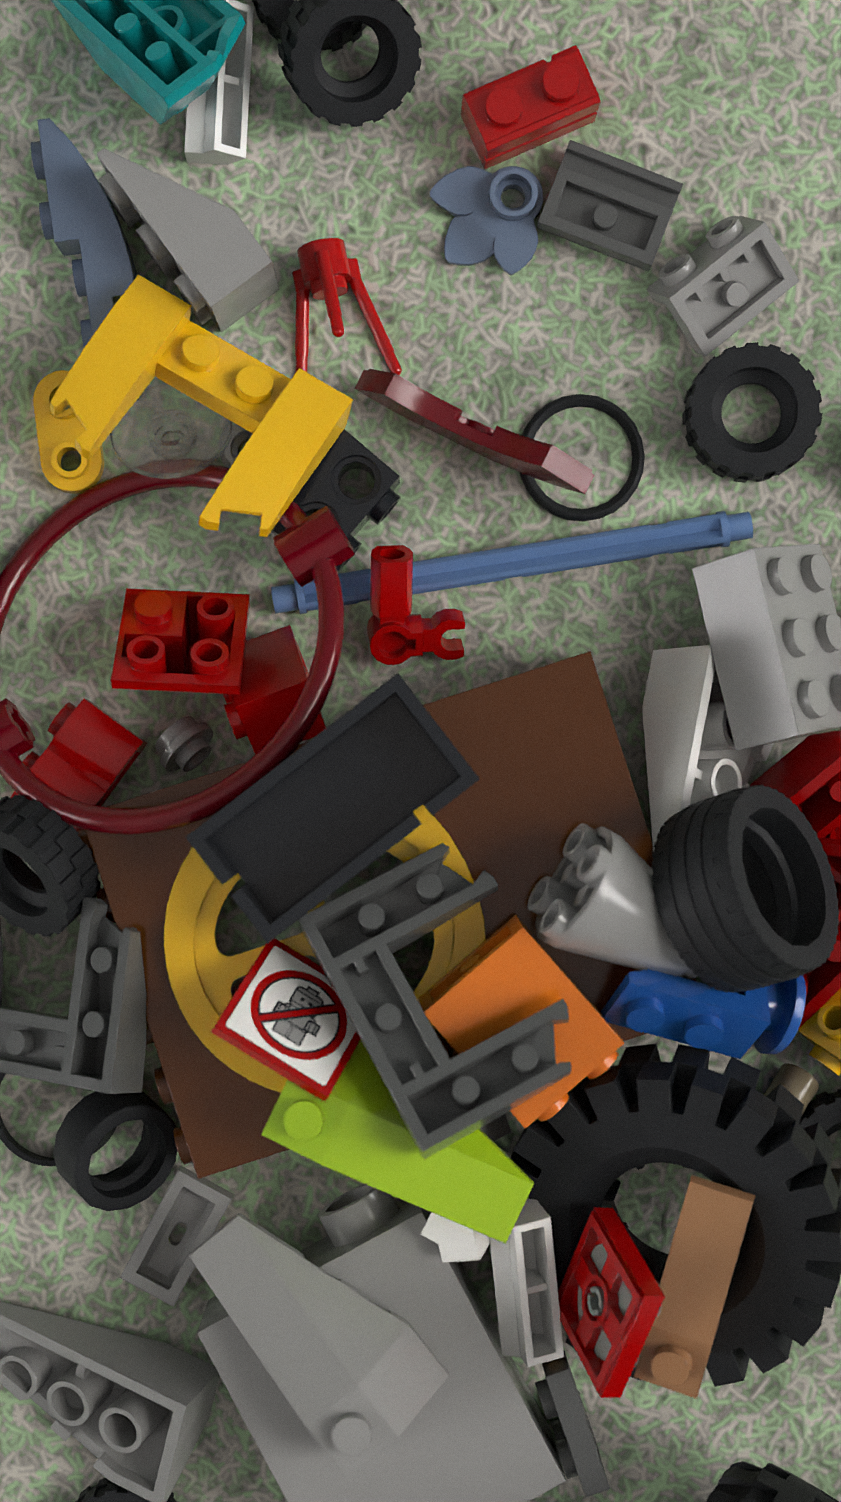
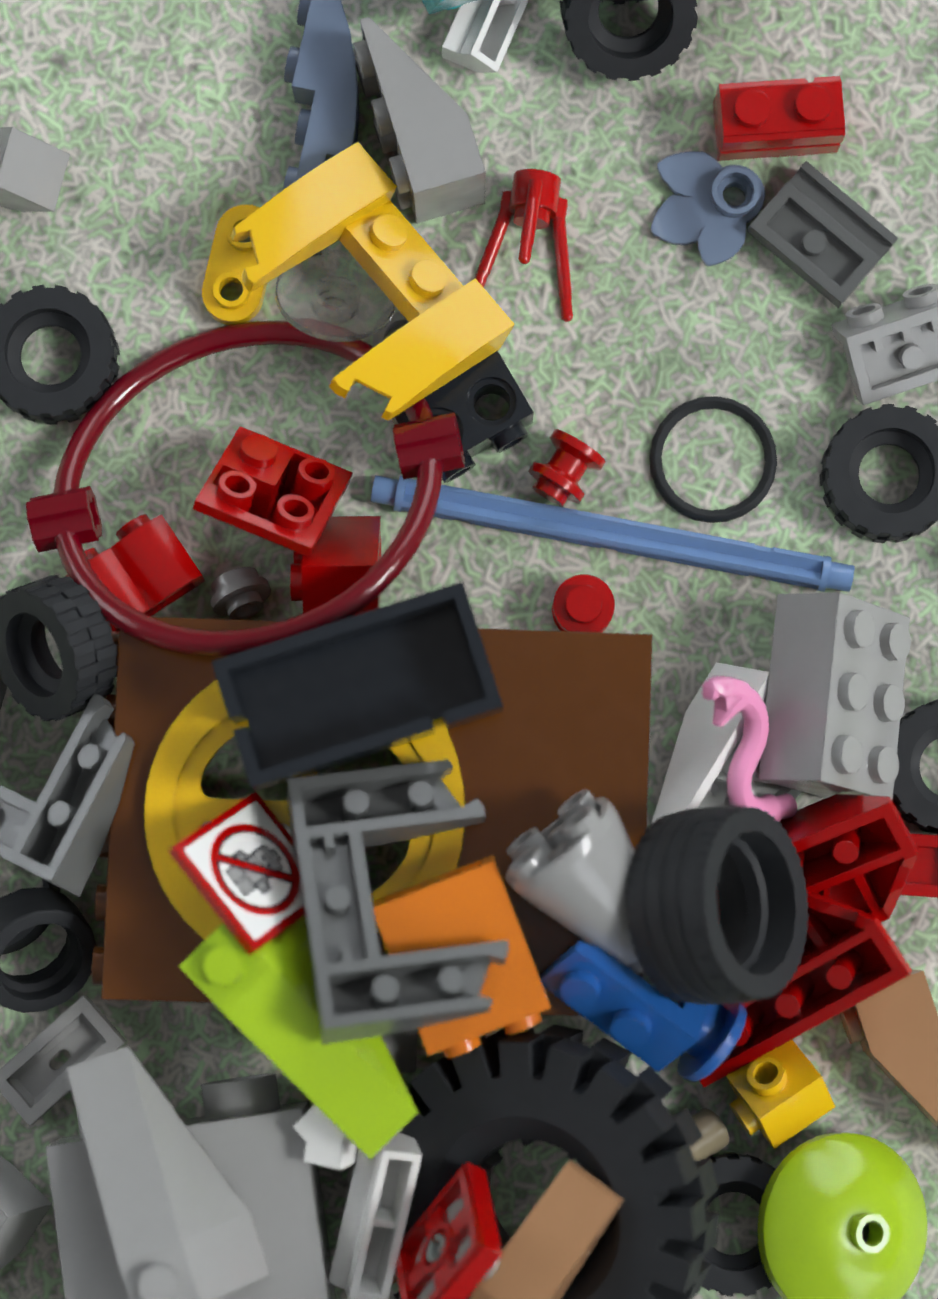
camera: 20 degrees right, 5 degrees down
(392, 629) = (475, 553): red bar -> none
(445, 526) = (560, 476): none -> red wheel
(499, 445) = (638, 418): dark red tile -> none
(510, 642) = (583, 604): none -> red wheel
(686, 687) = (736, 696): none -> bright pink animal

